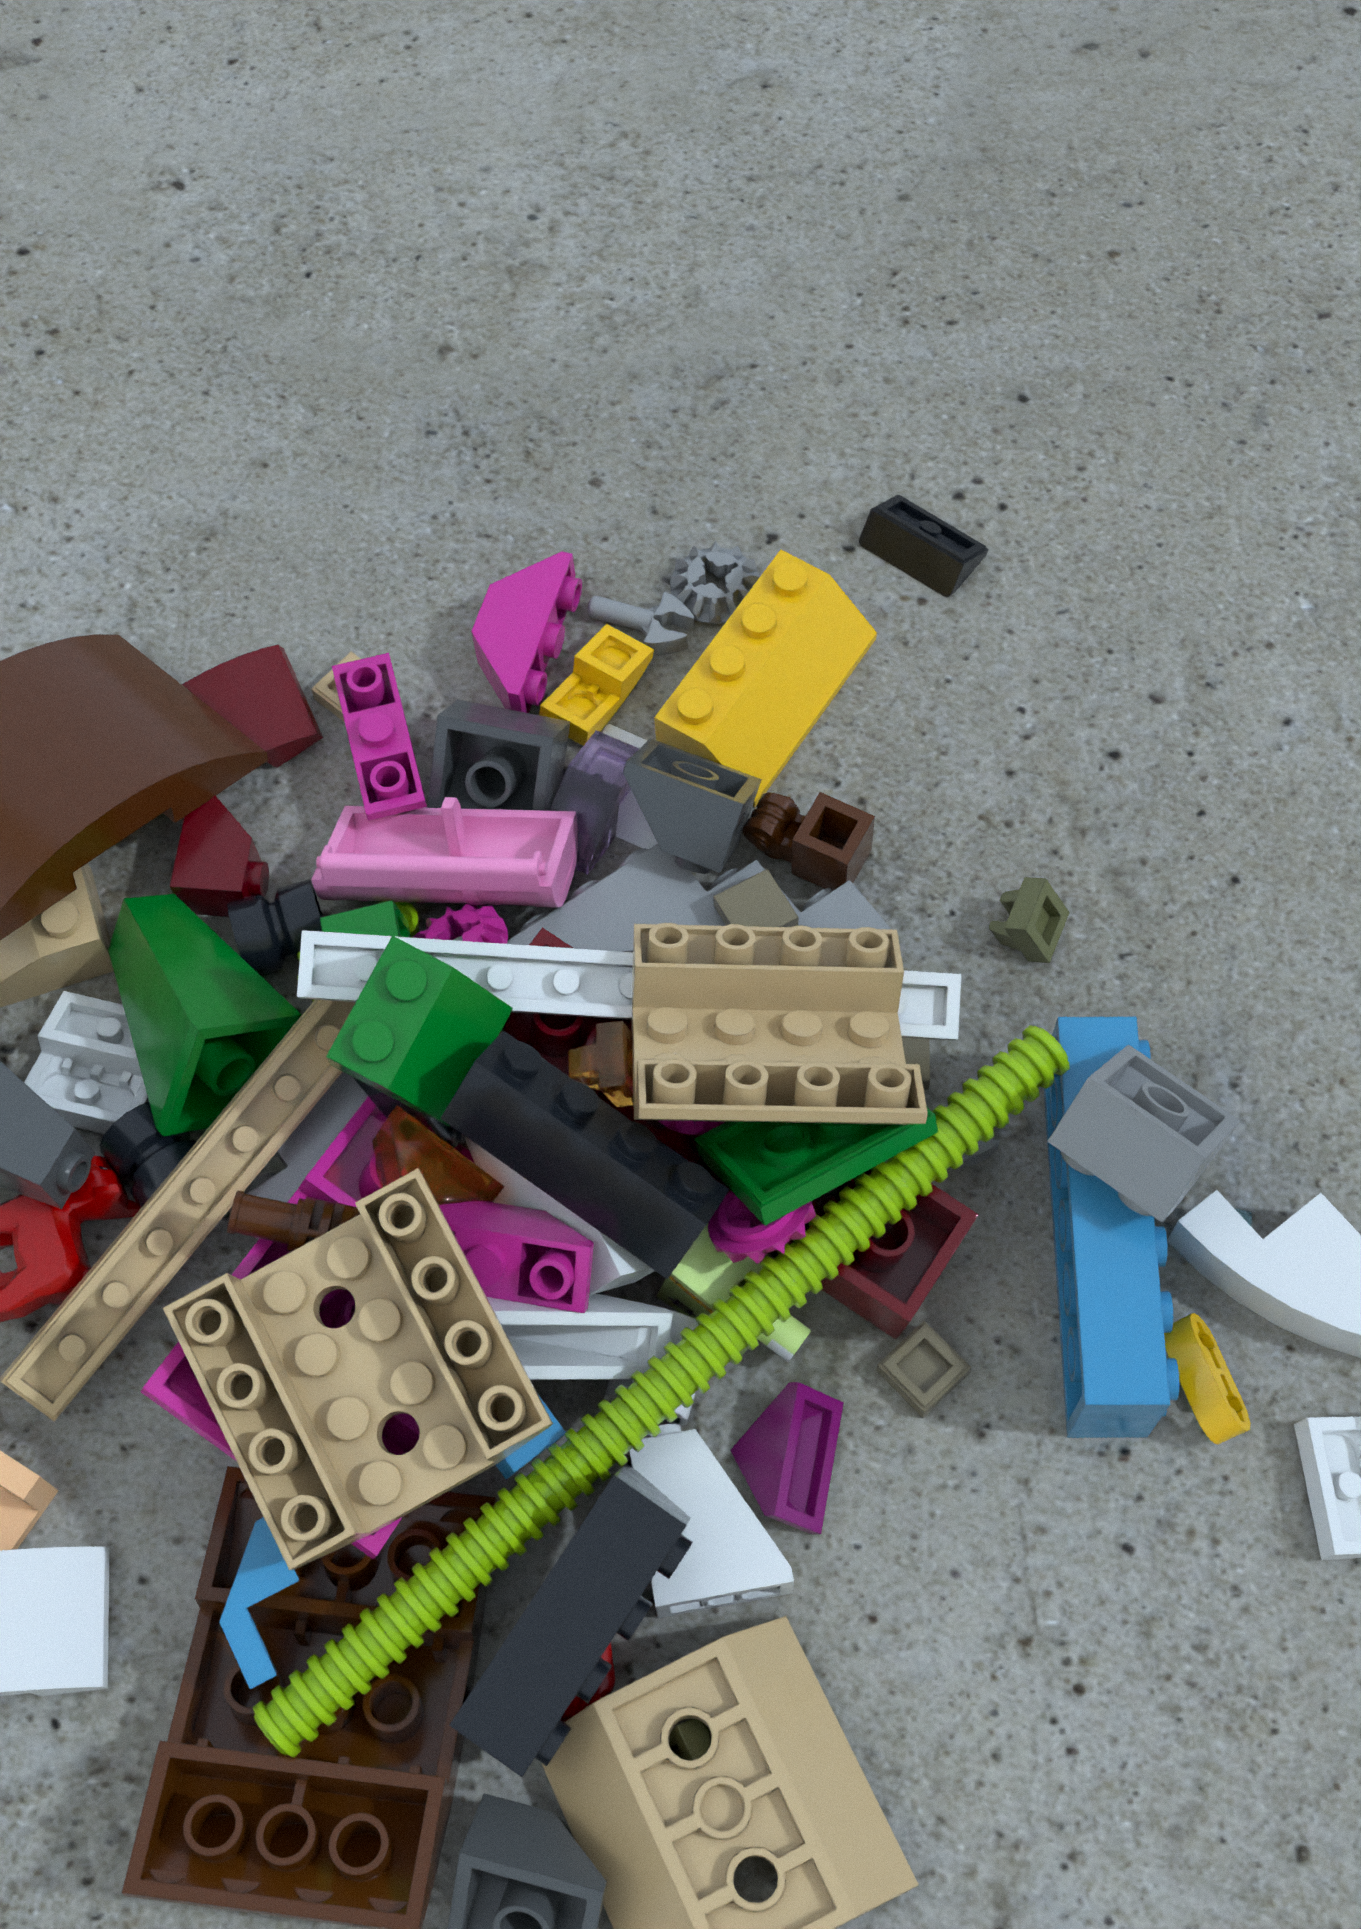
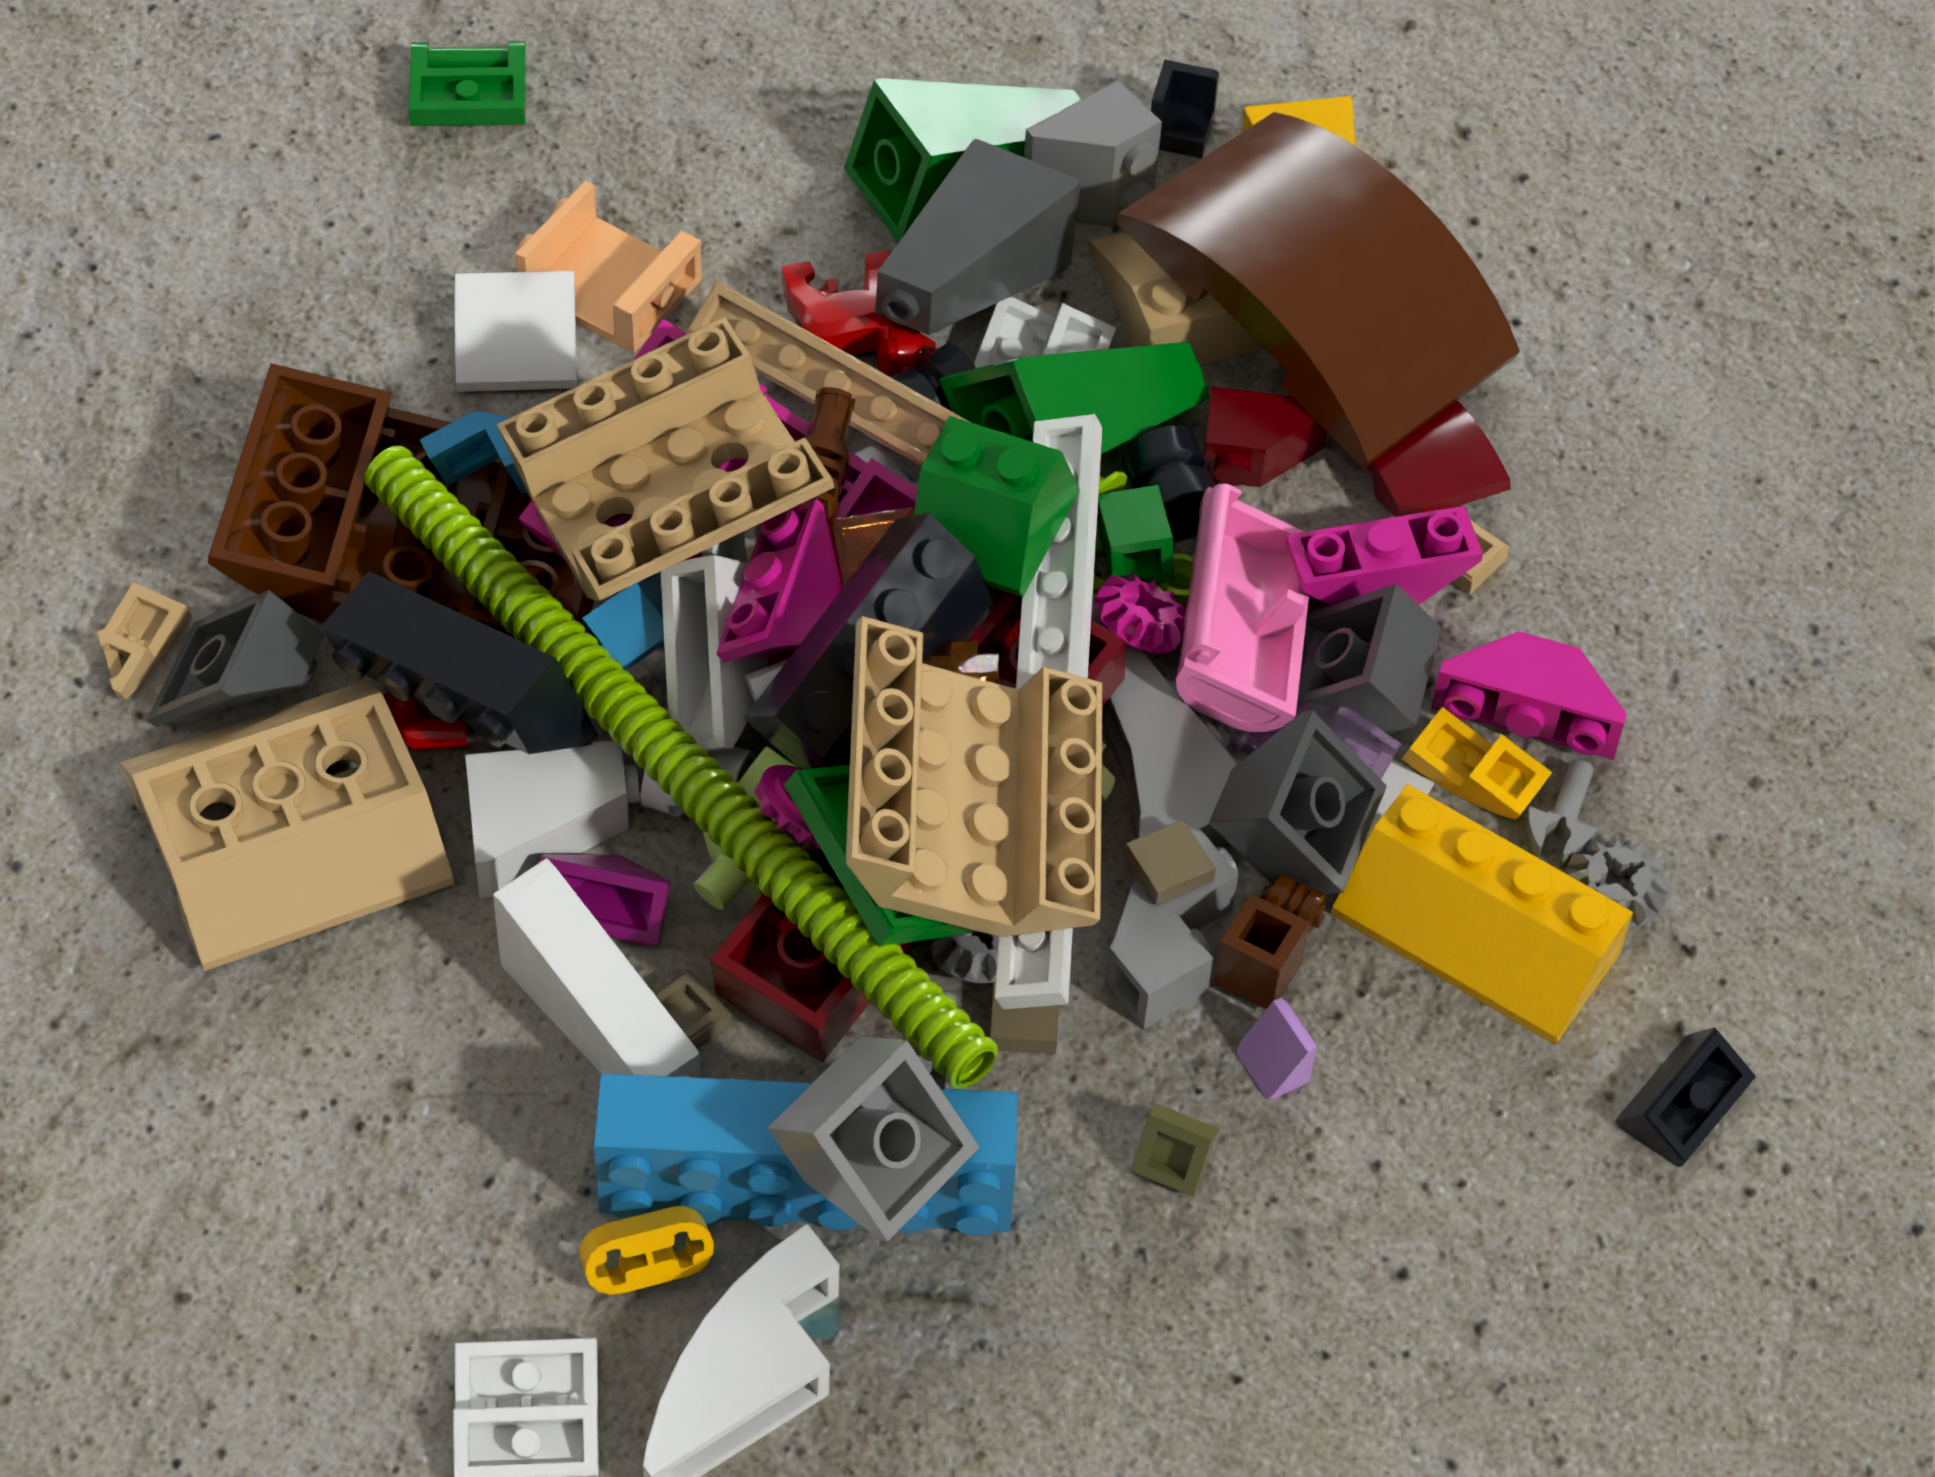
camera: 85 degrees right, 10 degrees down
(919, 840) = (1278, 1051): none -> lavender slope
(936, 1445) = (585, 981): none -> white slope

